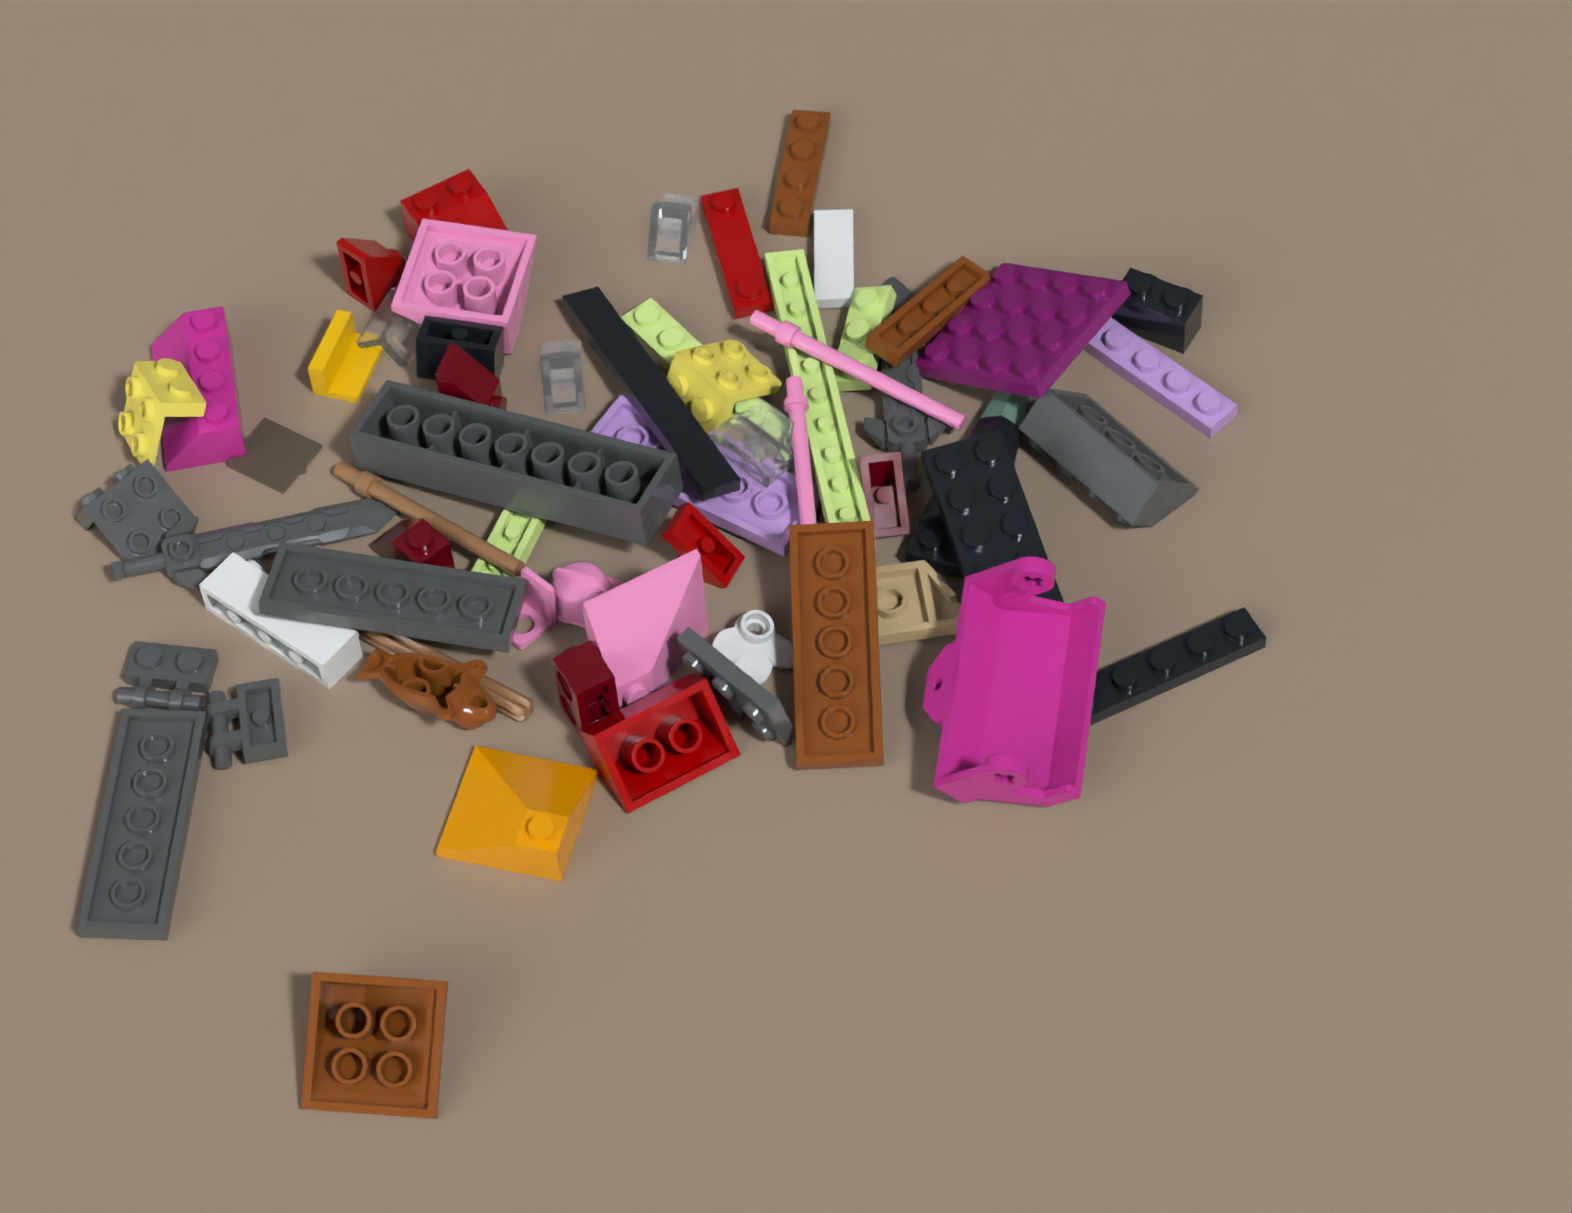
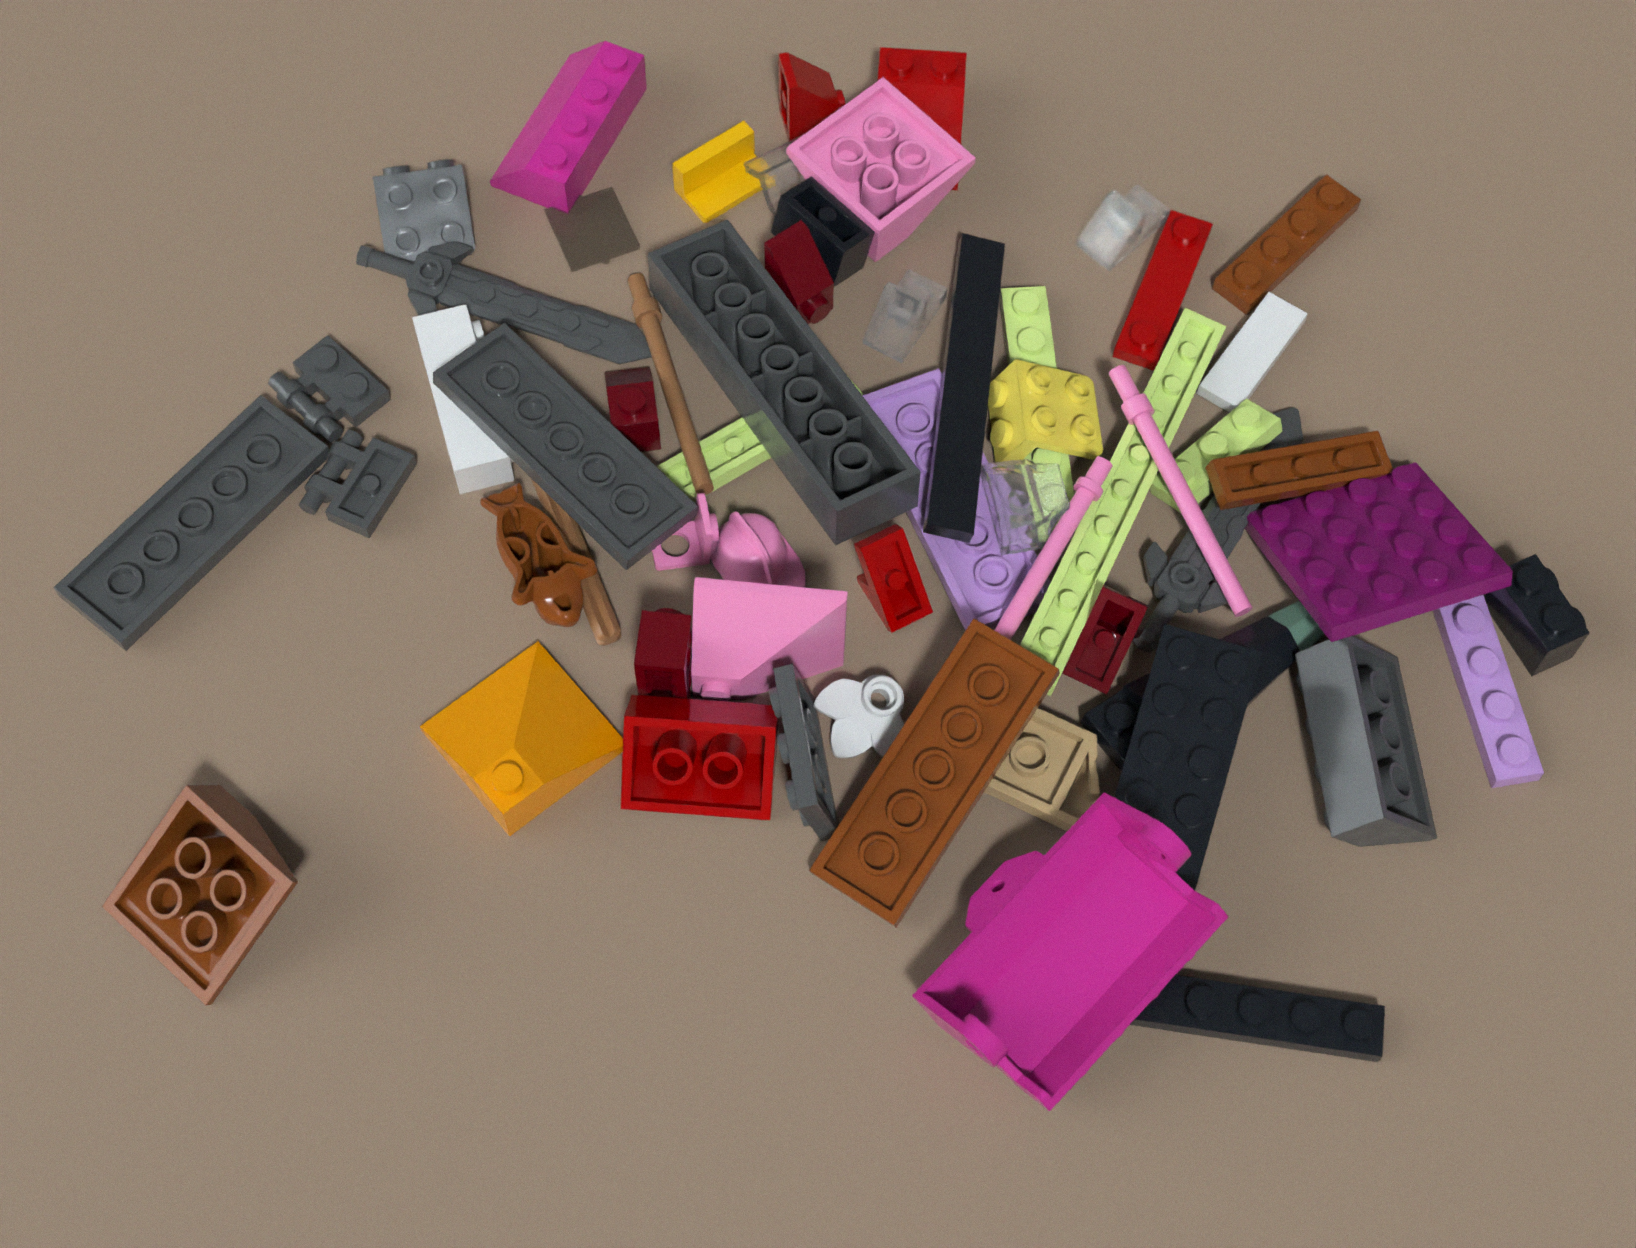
camera: 30 degrees right, 10 degrees up
(153, 393) = (520, 111): light yellow bracket -> none

